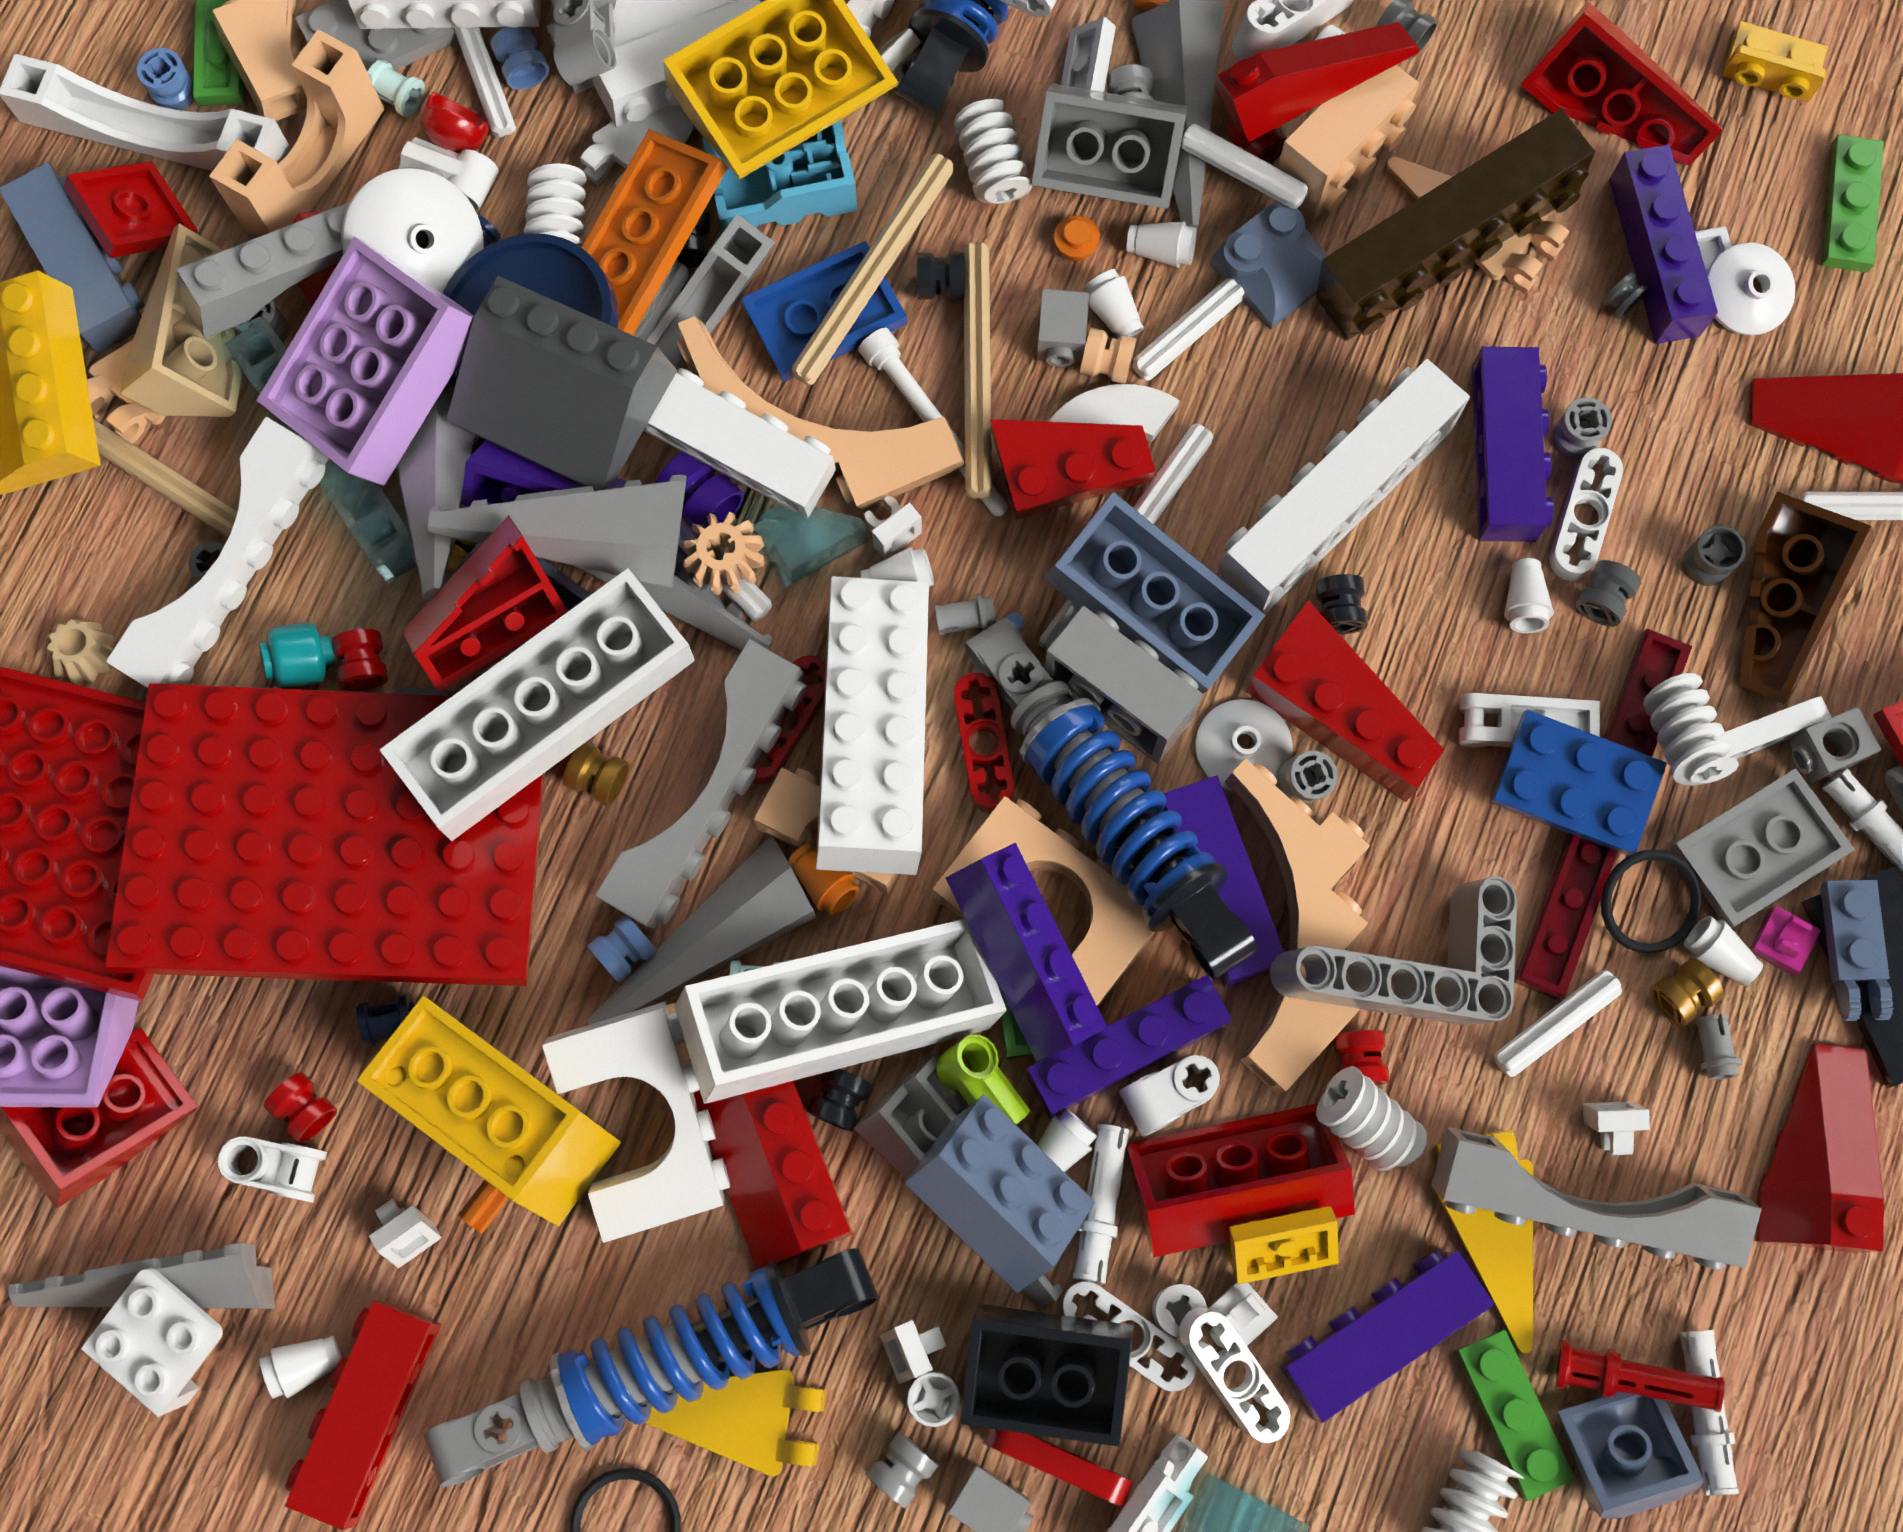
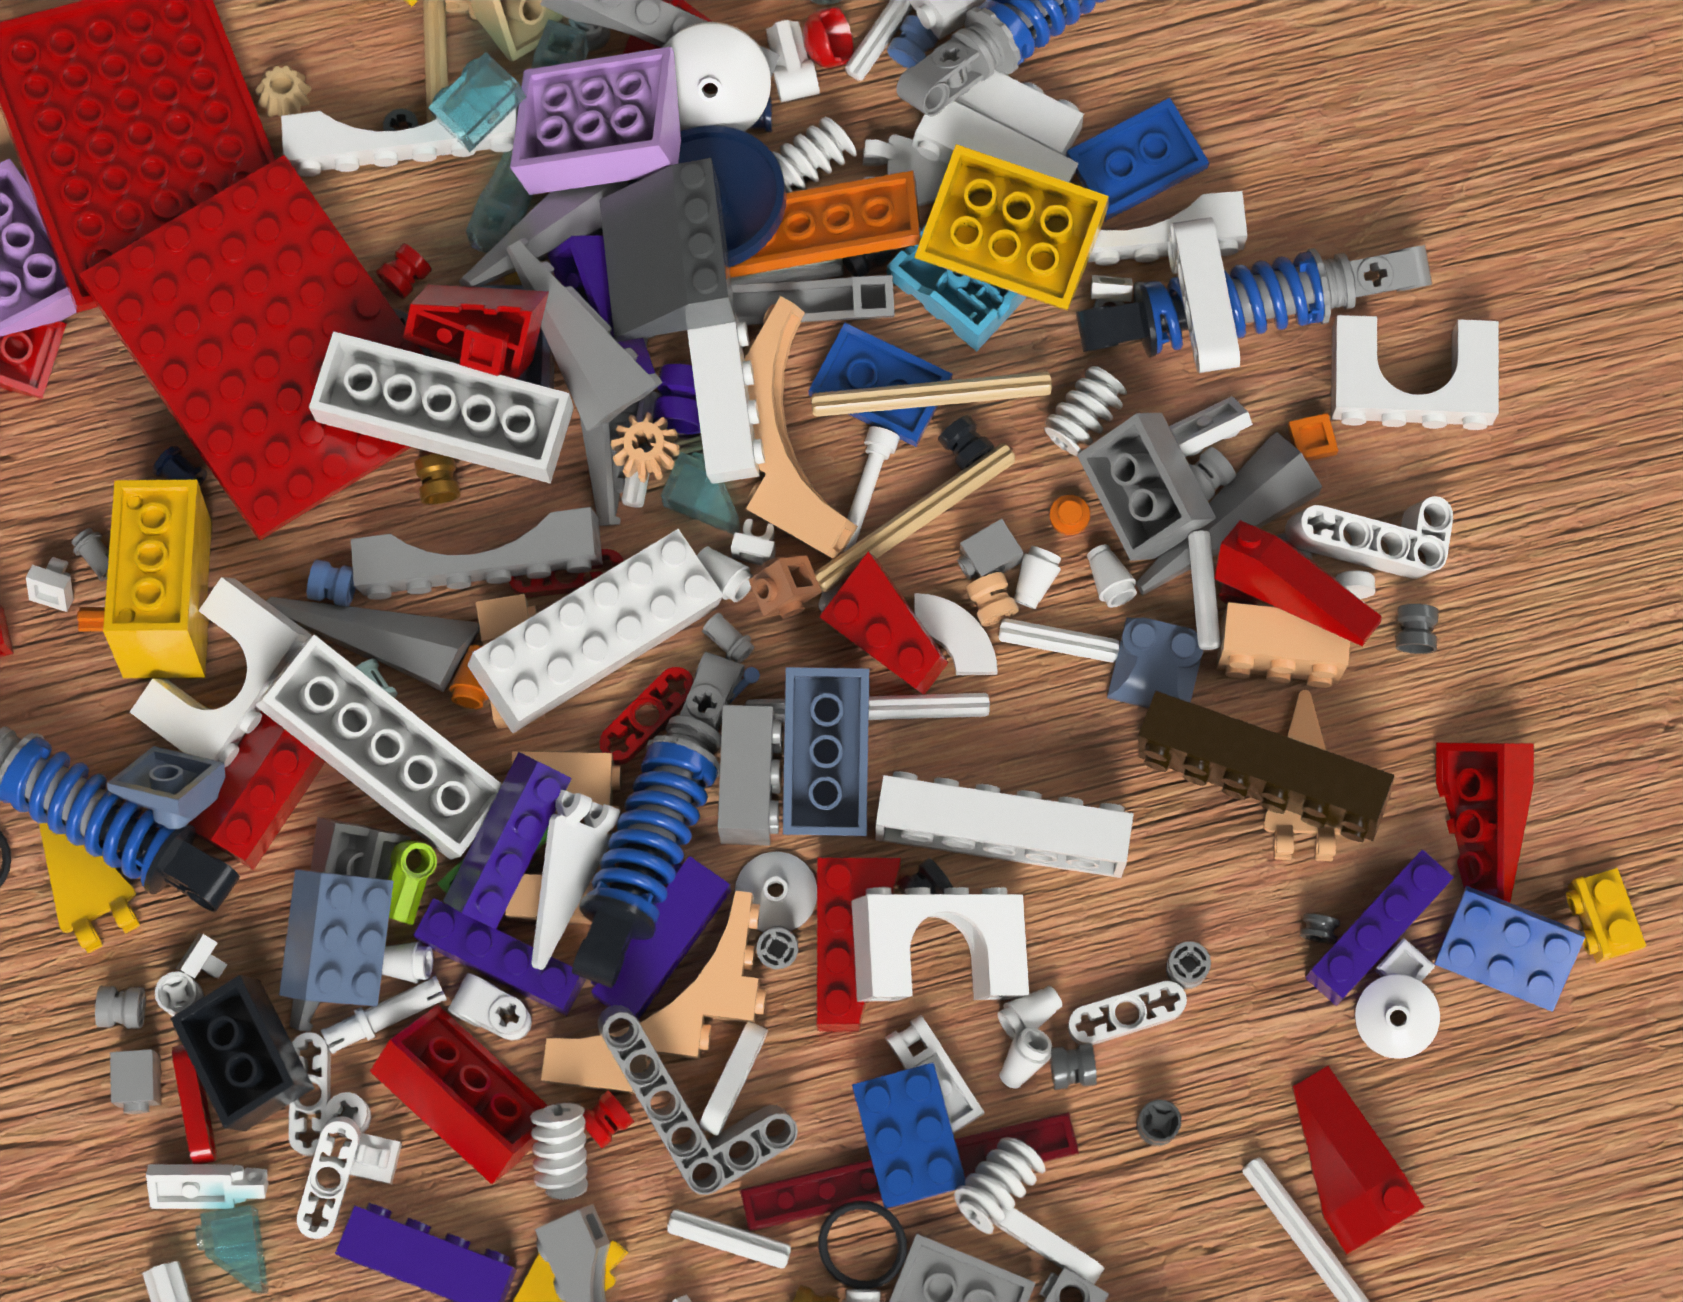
camera: 55 degrees right, 0 degrees up
(253, 456) = (477, 101): none -> clear light blue brick
(280, 1169) = (39, 479): white piece -> none
(295, 655) = (376, 228): teal head -> none
(297, 1104) = (85, 458): red wheel -> none
(405, 1164) = (95, 553): none -> light grey pin
(519, 614) = (484, 349): none -> red plate
(715, 1250) = (170, 784): none -> sand blue slope
(840, 1096) = (336, 794): black wheel -> none
(957, 525) = (785, 586): none -> nougat brick
(1087, 894) = (569, 865): none -> white flag
(1283, 1245) = (435, 1149): yellow bracket -> none
(1376, 651) = (988, 921): none -> white arch
(1408, 906) = (733, 1078): none -> white beam
(1511, 444) = (1137, 922): dark purple brick -> none
(1574, 625) = (1026, 1055): none -> white cone
(1757, 152) = (1509, 948): none -> plate
(1798, 584) = (1183, 1199): reddish brown wedge -> none
(1852, 203) = (1530, 1047): bright green plate -> none

